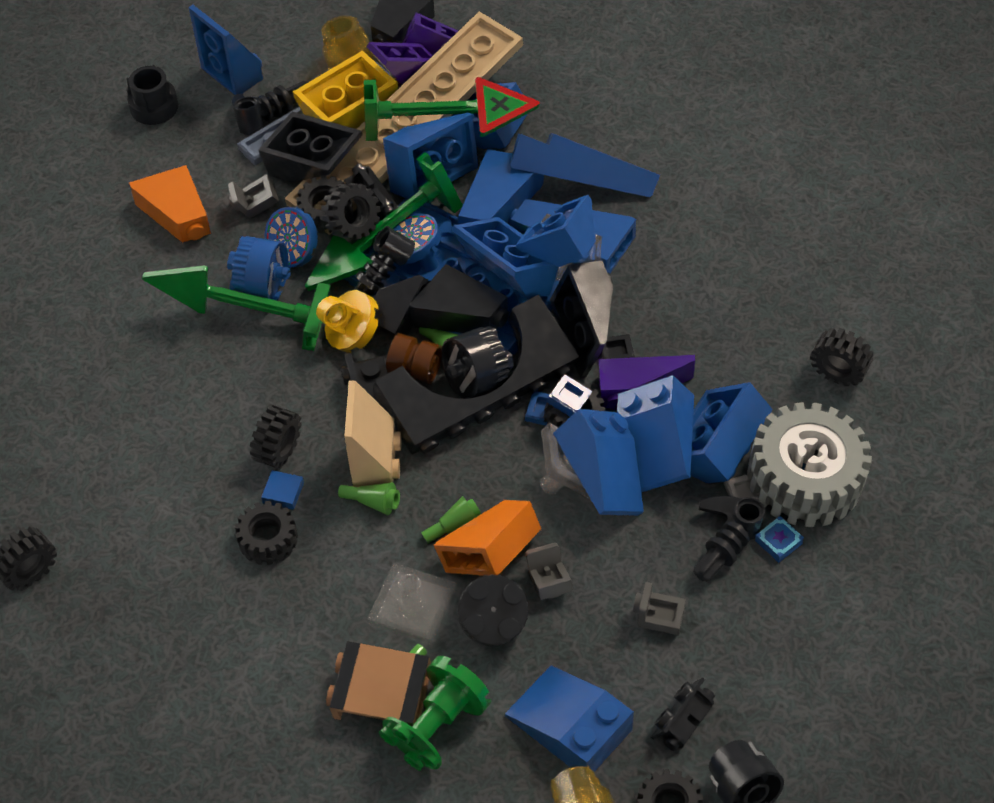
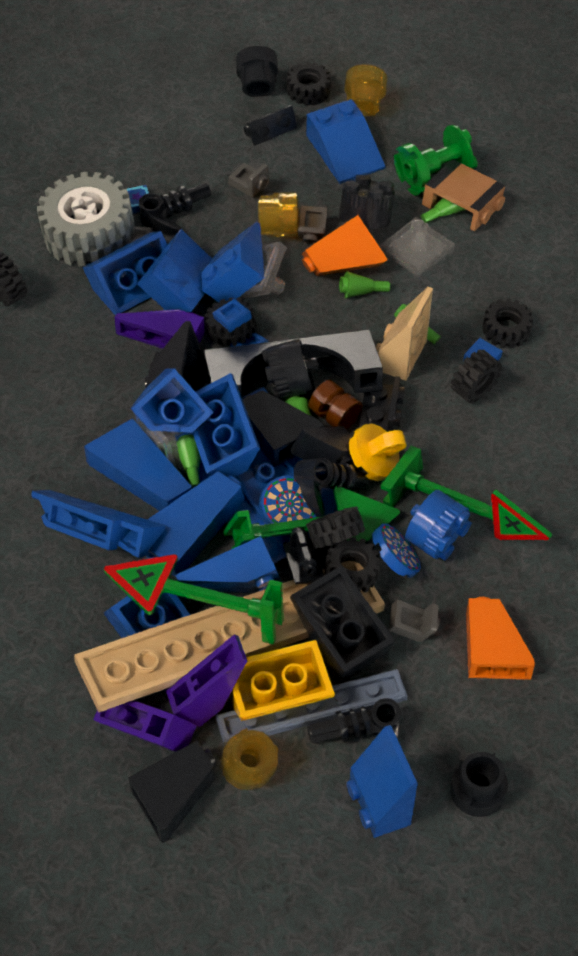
camera: 160 degrees left, 0 degrees up
(591, 560) = (279, 214): none -> clear yellow piece

